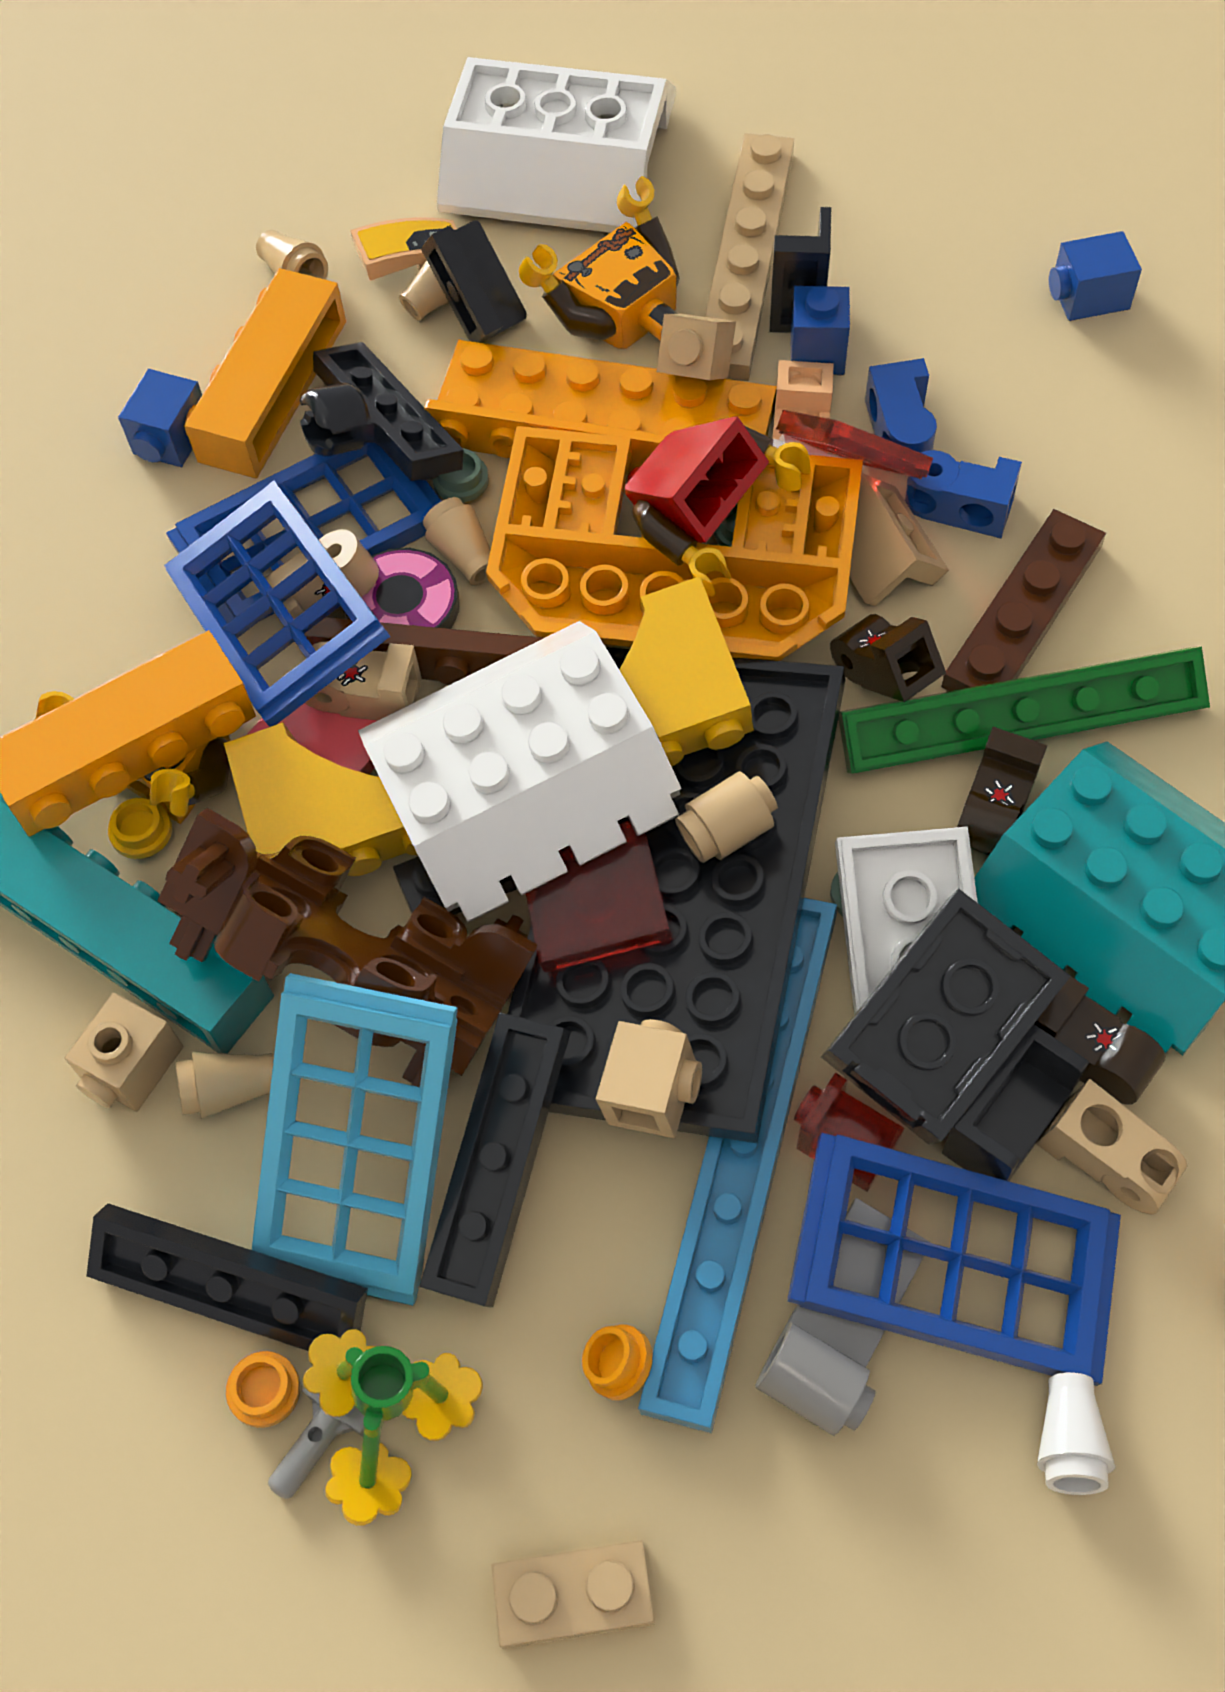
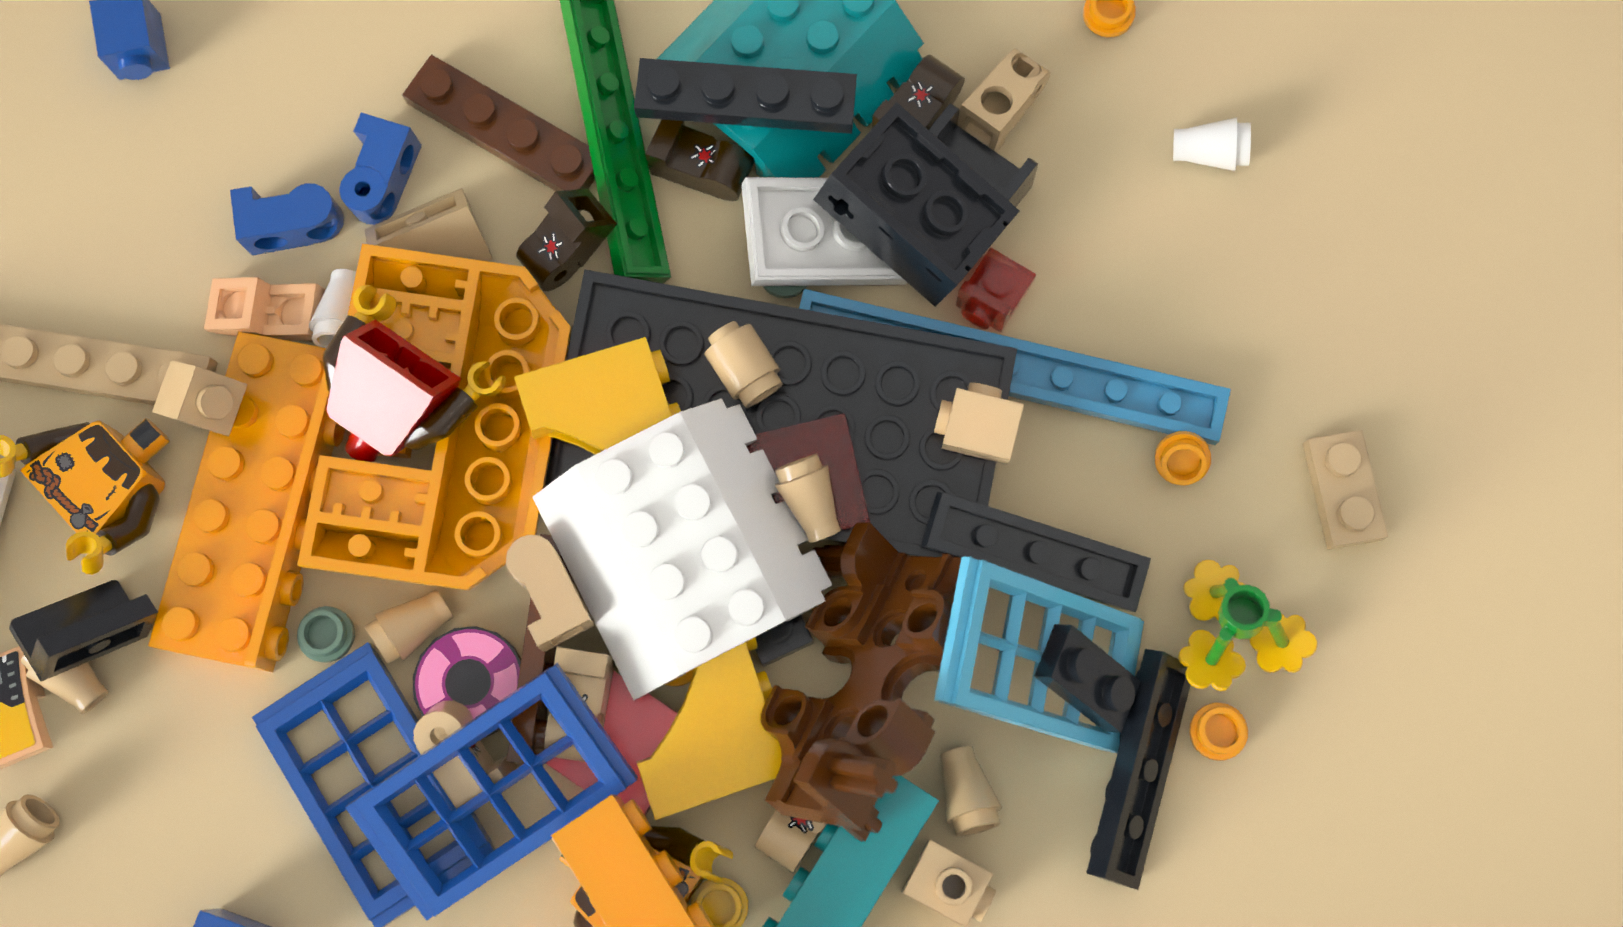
camera: 90 degrees left, 15 degrees up
(265, 373) = (174, 845): light orange brick -> none
(311, 1446) = (1257, 692): light grey bar -> none
(325, 1196) = (1087, 678): none -> black plate
(372, 406) = (251, 719): black plate -> none
(473, 634) = (542, 572): none -> tan leg
(567, 884) = (809, 495): none -> tan cone
(798, 263) = (118, 293): black panel -> none
(820, 325) = (174, 286): blue brick -> none
(824, 1358) = (1164, 314): light grey door -> none
(826, 1222) = (1076, 300): blue piece -> none
(854, 444) = (340, 253): clear red tile -> none
(1067, 818) = (745, 95): none -> black plate

